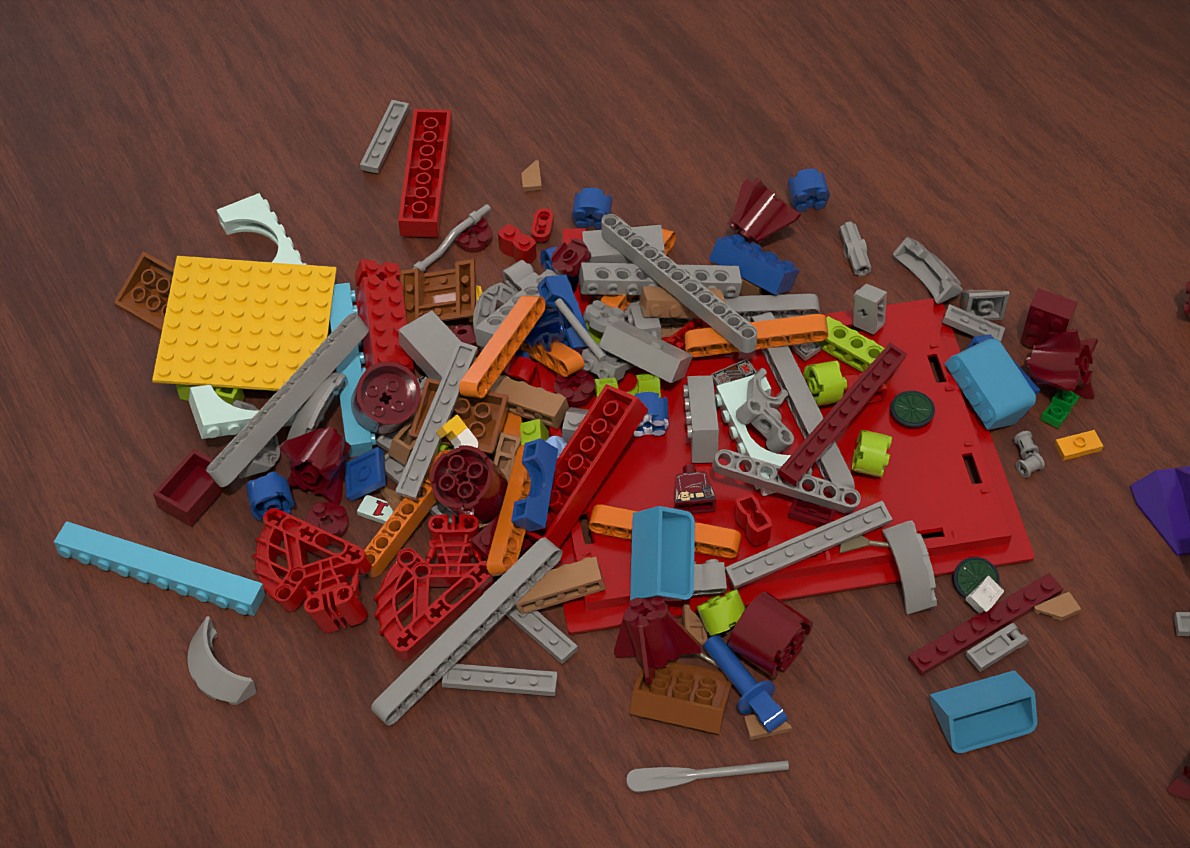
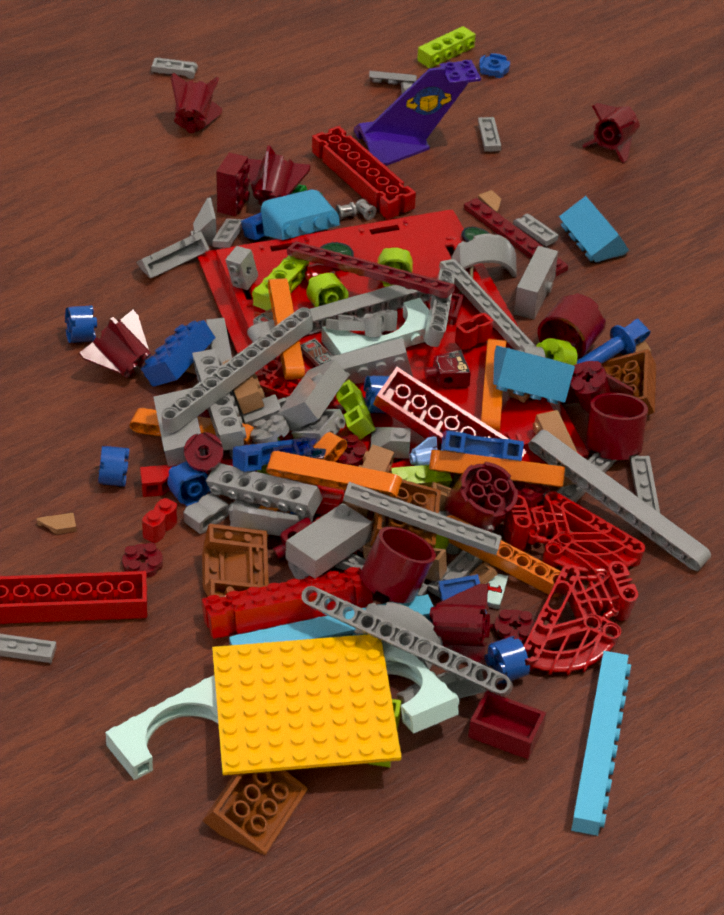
camera: 100 degrees left, 10 degrees down
(210, 675) = (692, 687): light grey windscreen -> none
(457, 433) = (441, 500): leg -> none
(473, 218) = (131, 552): light grey bar -> none
(540, 228) = (128, 507): red plate -> none
(580, 330) = (302, 430): light grey bar -> none
(589, 633) = (616, 425): none -> dark red brick
(666, 777) = (700, 398): light grey piece -> none
(855, 249) = (144, 301): light grey piece -> none
(872, 618) = (536, 282): none -> light grey brick
(984, 595) = (497, 228): white slope -> none
(1078, 445) = (338, 188): light orange plate -> none
(1099, 465) = (363, 172): none -> red brick

